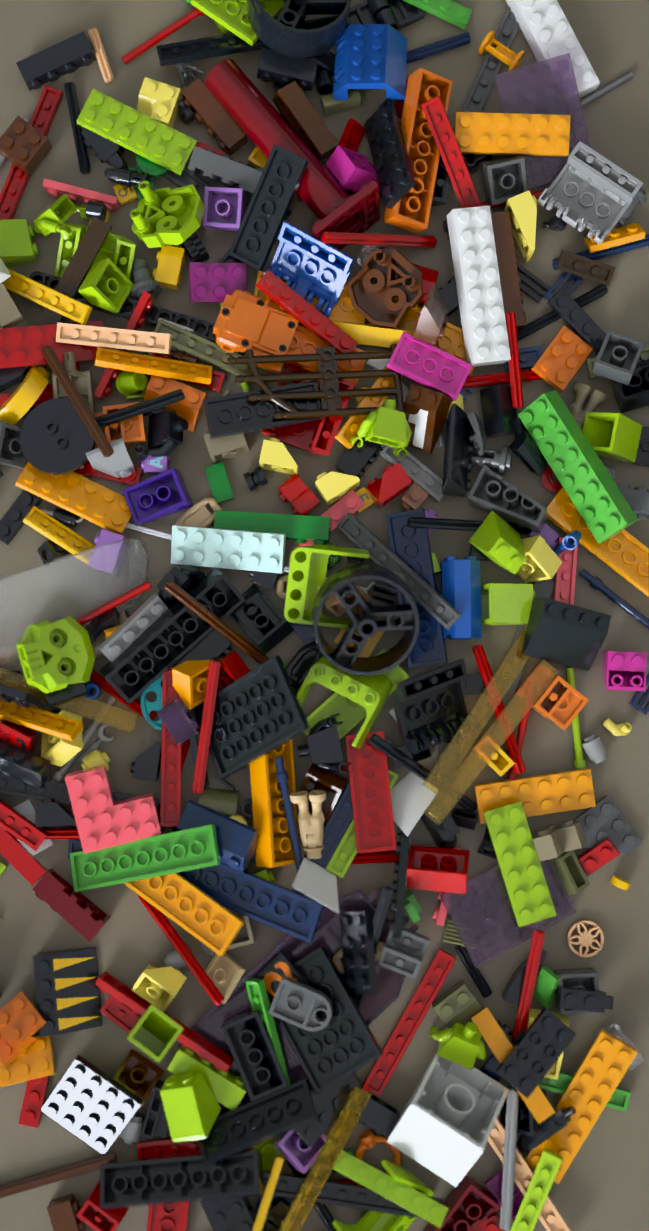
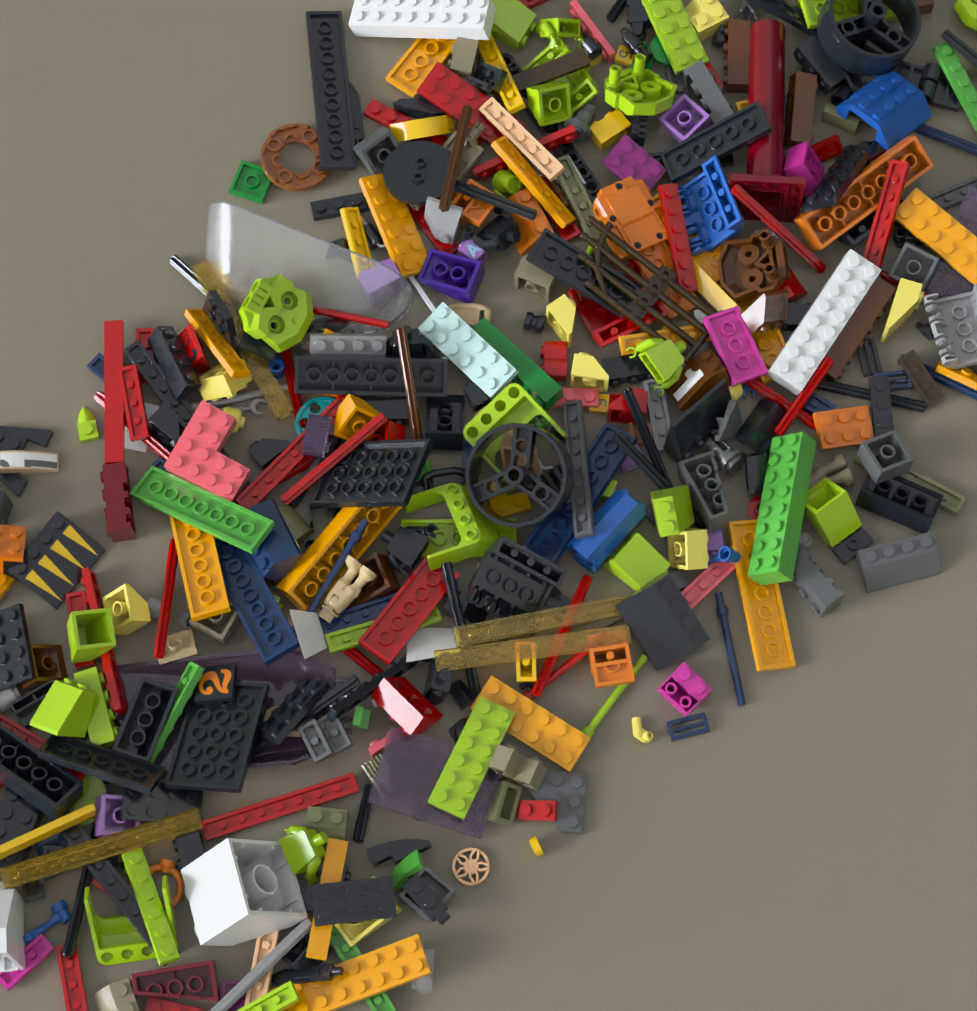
camera: 40 degrees right, 15 degrees down
(39, 308) = (488, 77): none -> black bracket
(219, 483) = (505, 304): green tile -> none
(299, 1003) = (212, 707): dark grey plate -> none
(425, 498) = (644, 432): none -> black axle
(529, 982) = (401, 847): red axle -> none
(594, 749) = (608, 730): light grey brick -> none

